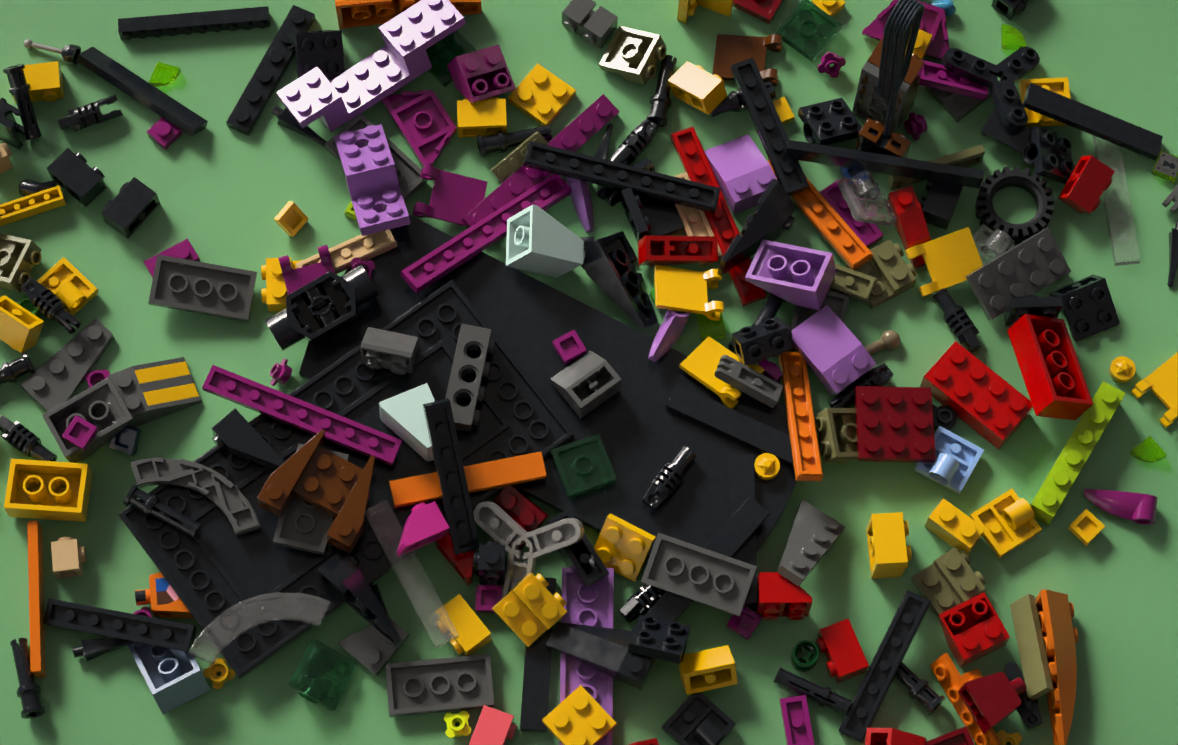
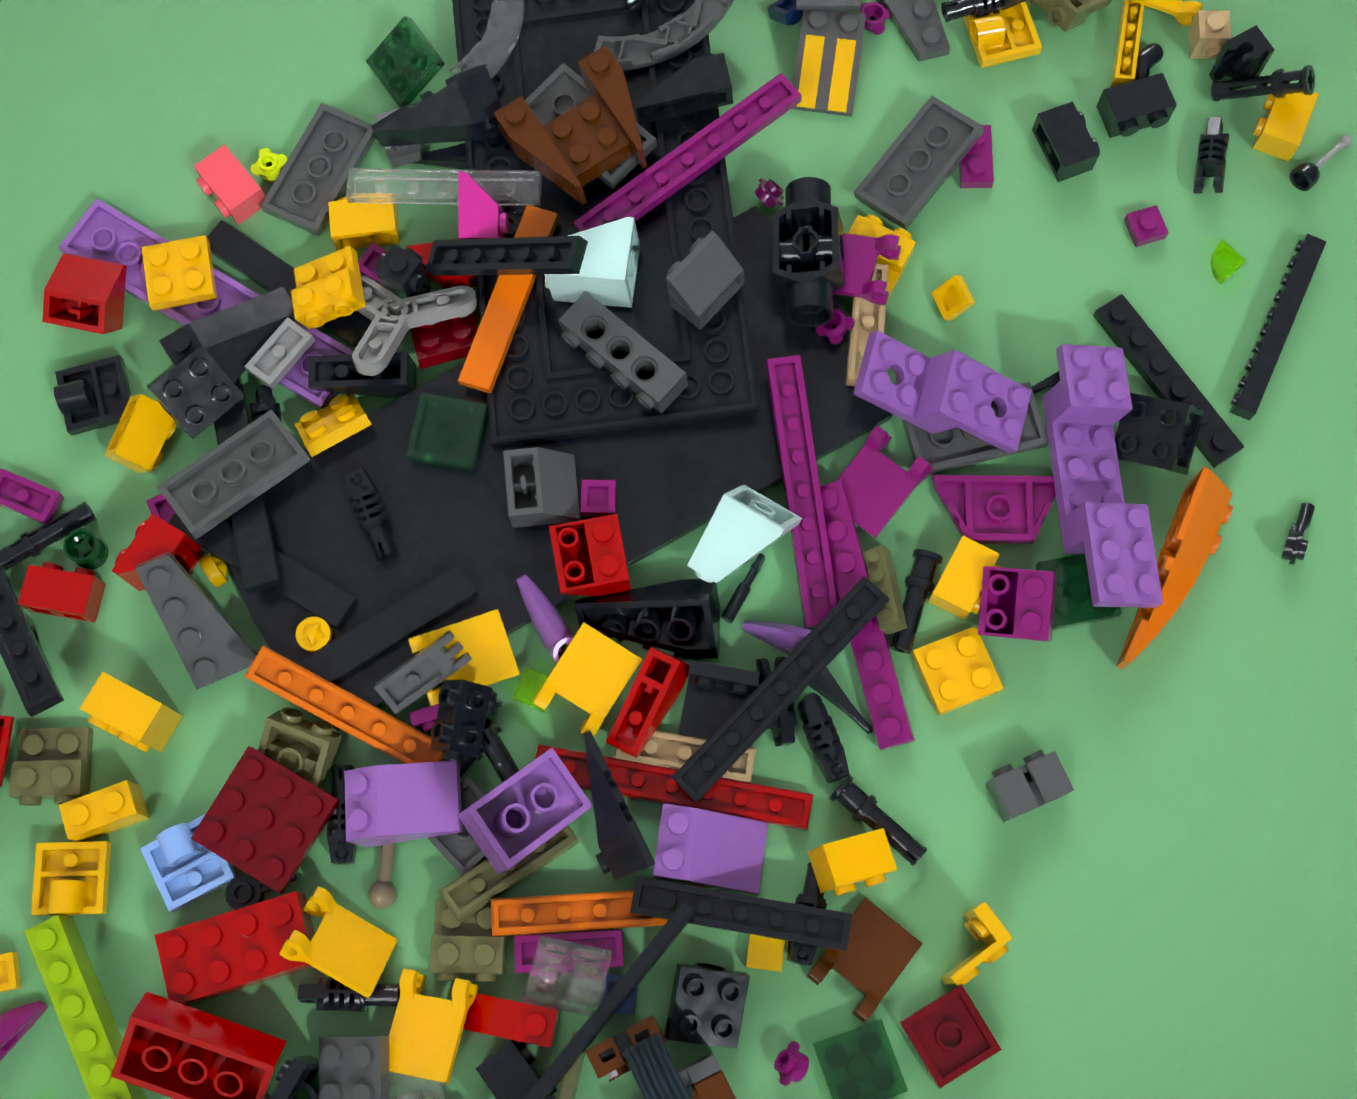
camera: 125 degrees right, 5 degrees up
(142, 91) = (1213, 224): black tile -> none
(595, 611) = (280, 353): none -> light grey plate
(611, 323) = (590, 556): none -> red slope
(634, 54) = (947, 811): olive plate -> none
(765, 562) = (214, 569): none -> yellow tile
(933, 330) = (342, 945): none -> yellow flag

